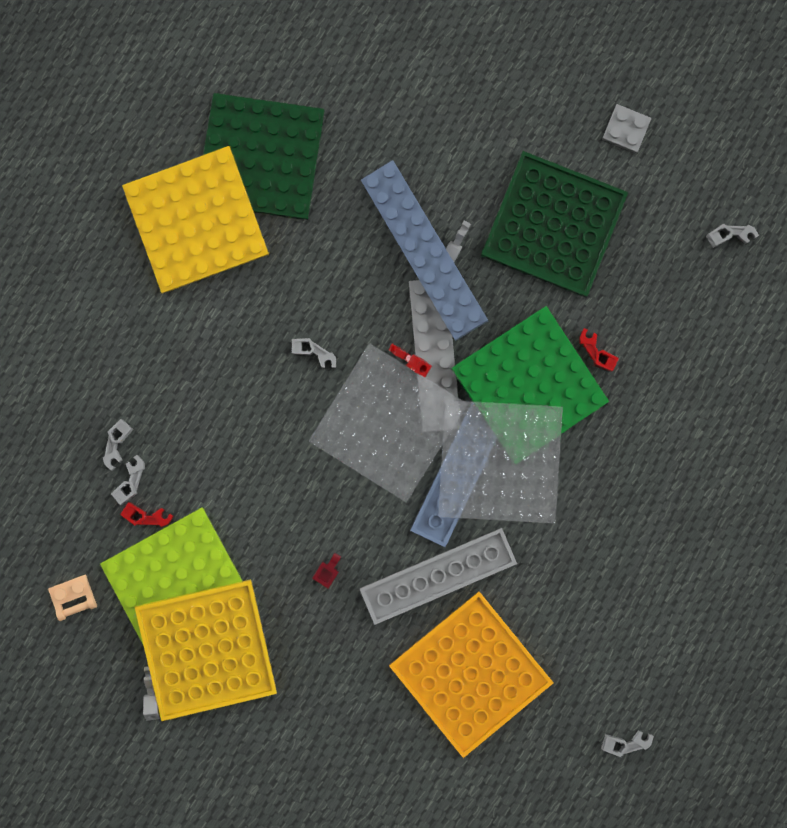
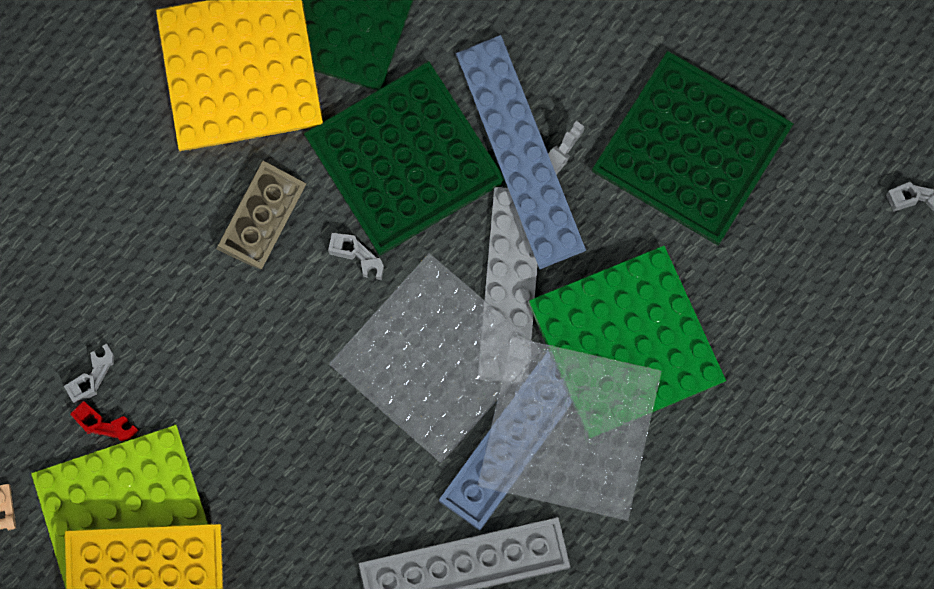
camera: 15 degrees right, 10 degrees down
(111, 449) = (75, 334): light grey piece -> none
(235, 334) = (261, 215): none -> dark tan slope
(326, 573) = (320, 536): dark red plate -> none
(336, 269) = (404, 158): none -> dark green plate
(415, 363) = (482, 286): red piece -> none
(590, 346) = (713, 306): red piece -> none
(626, 128) = (805, 46): light grey plate -> none

